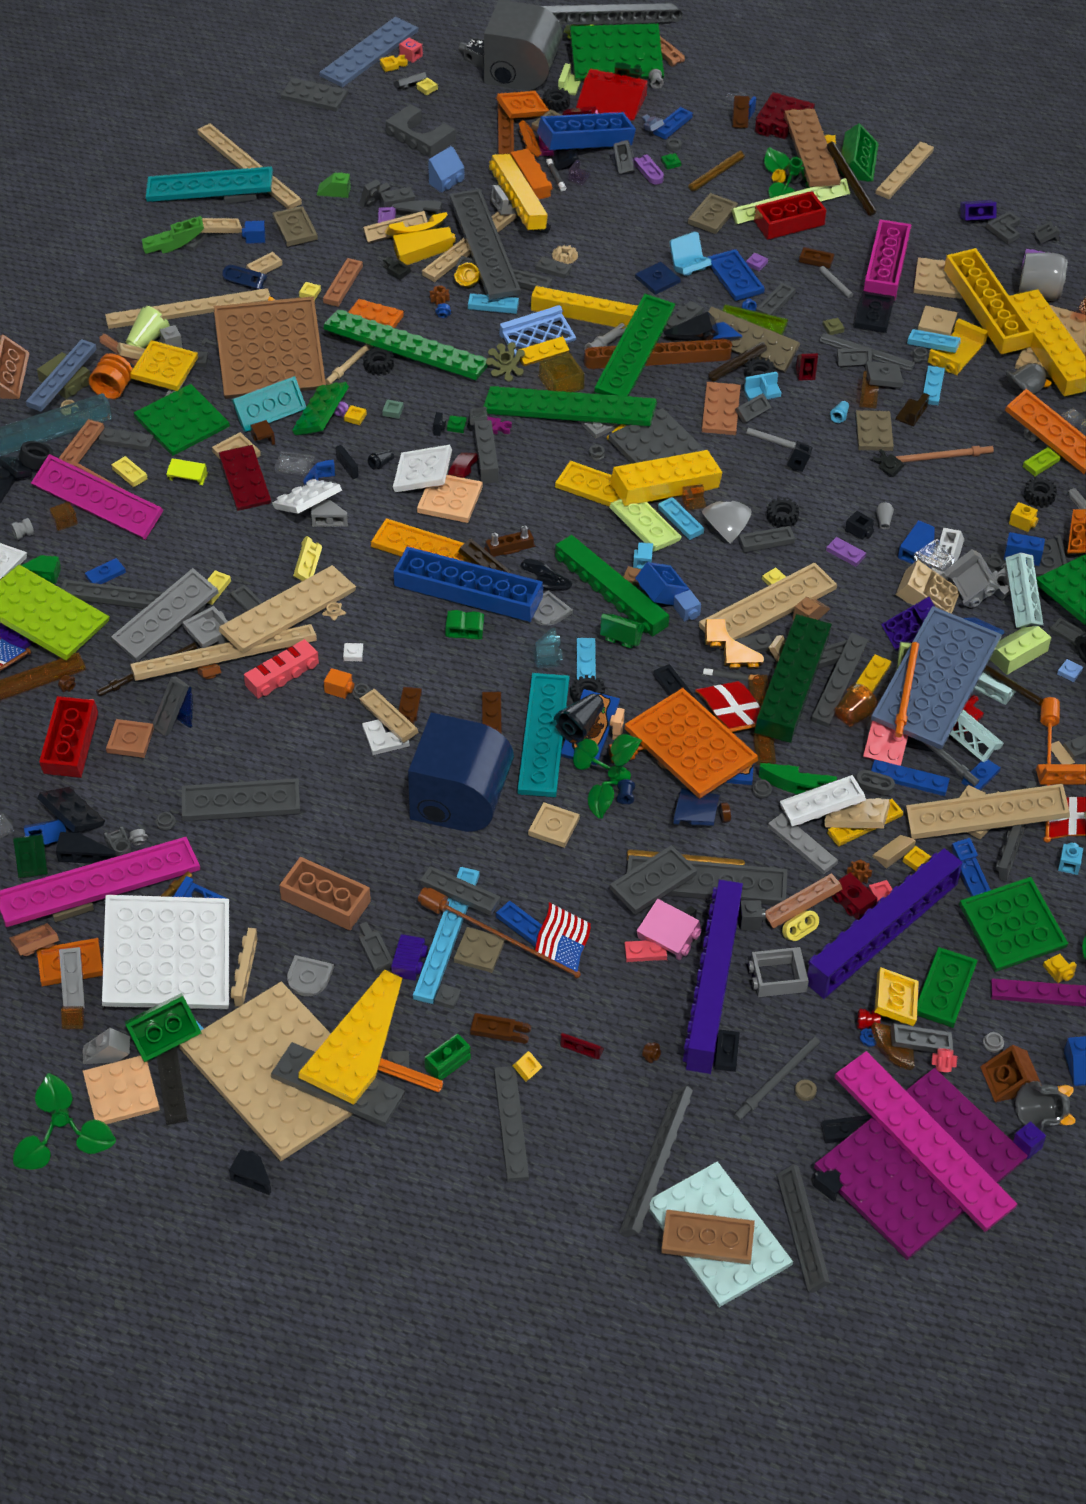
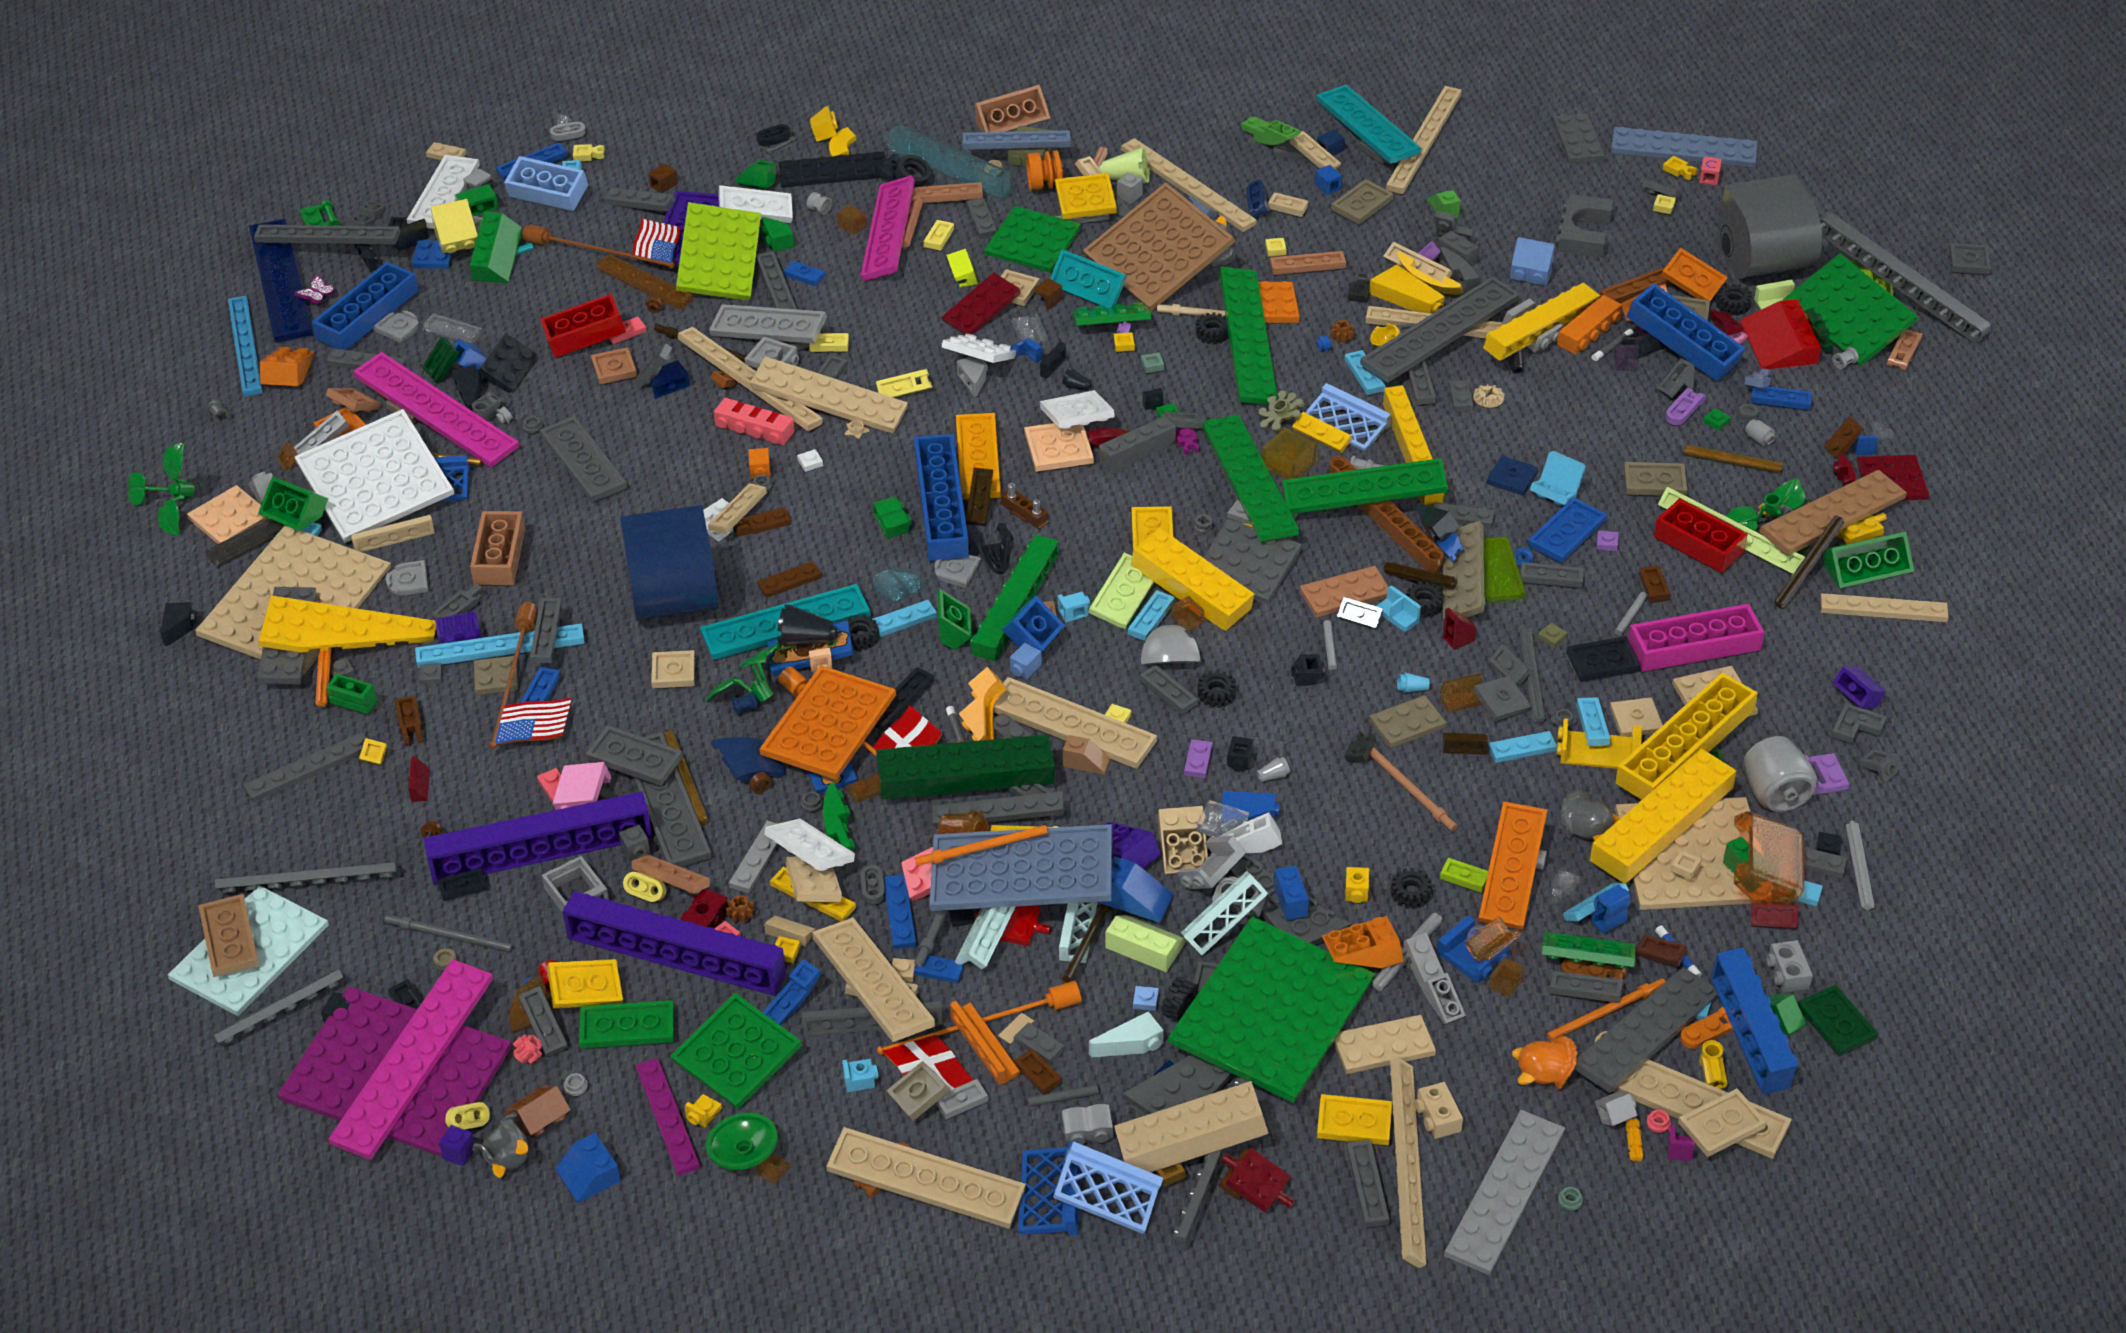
camera: 65 degrees right, 5 degrees down
(212, 209) = (1332, 142): none -> dark blue brick
(702, 147) = (1760, 432): none -> light grey brick
(1004, 1126) = (465, 1115): none -> light yellow plate

